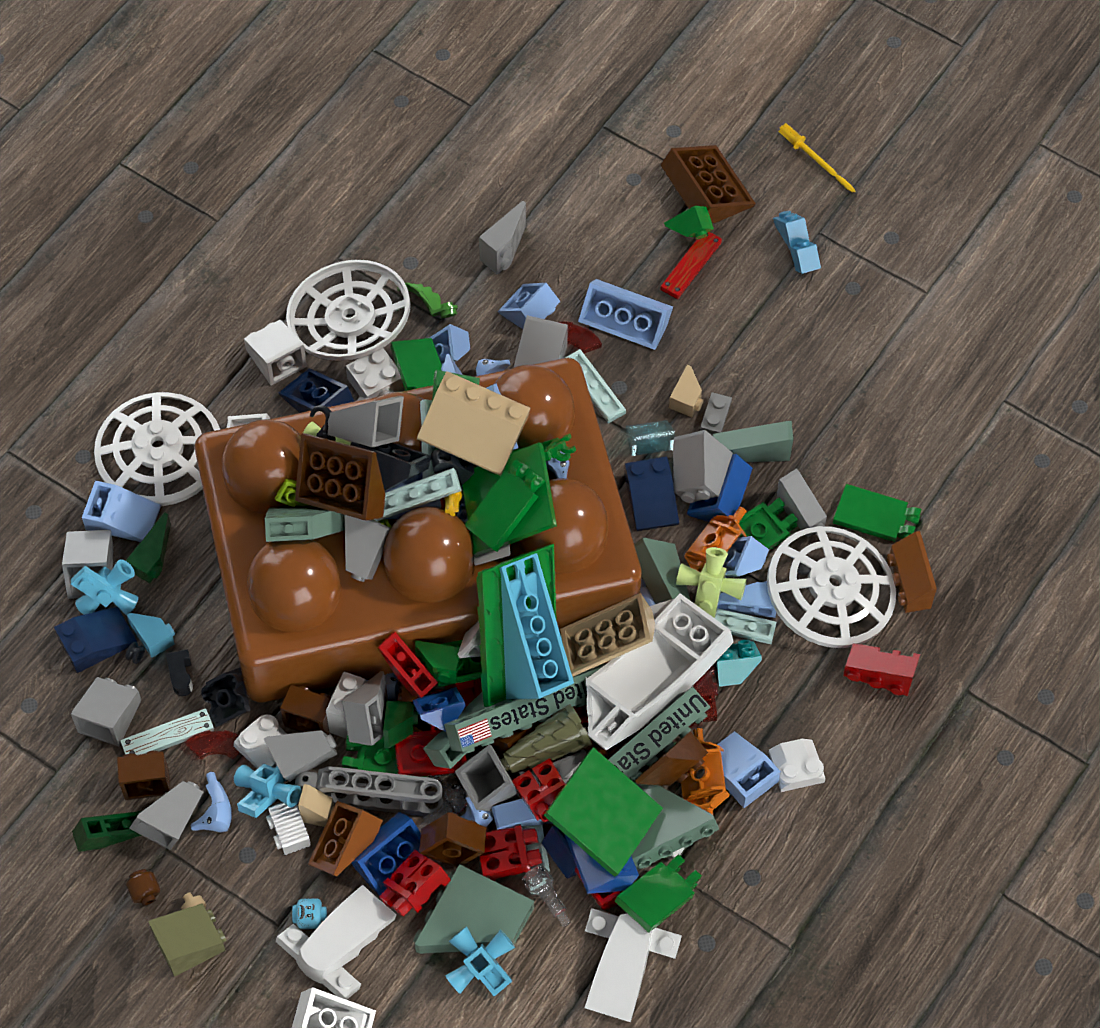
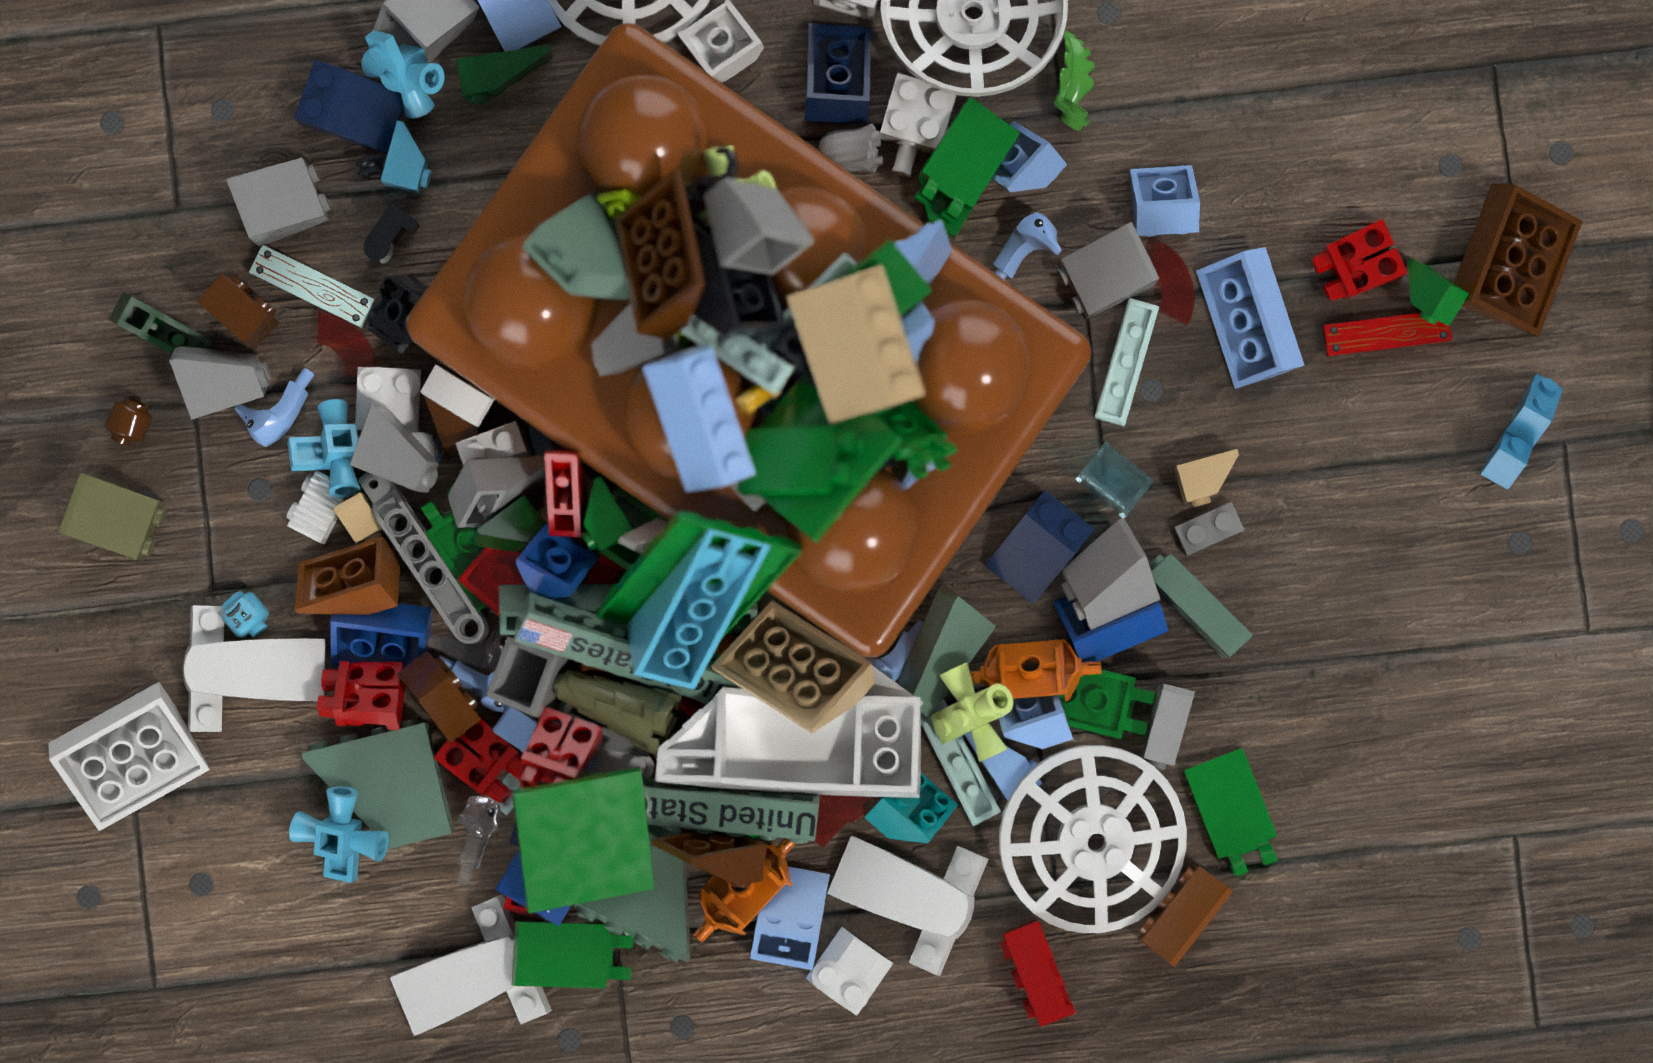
camera: 50 degrees right, 25 degrees up
(191, 901) = (154, 487): tan tile -> none
(301, 687) = (457, 395): none -> white slope
(439, 526) = (698, 419): none -> light blue slope
(502, 239) = (1215, 99): light grey slope -> none
(642, 252) = (1350, 267): none -> red hips
(782, 699) = (912, 895): none -> white slope

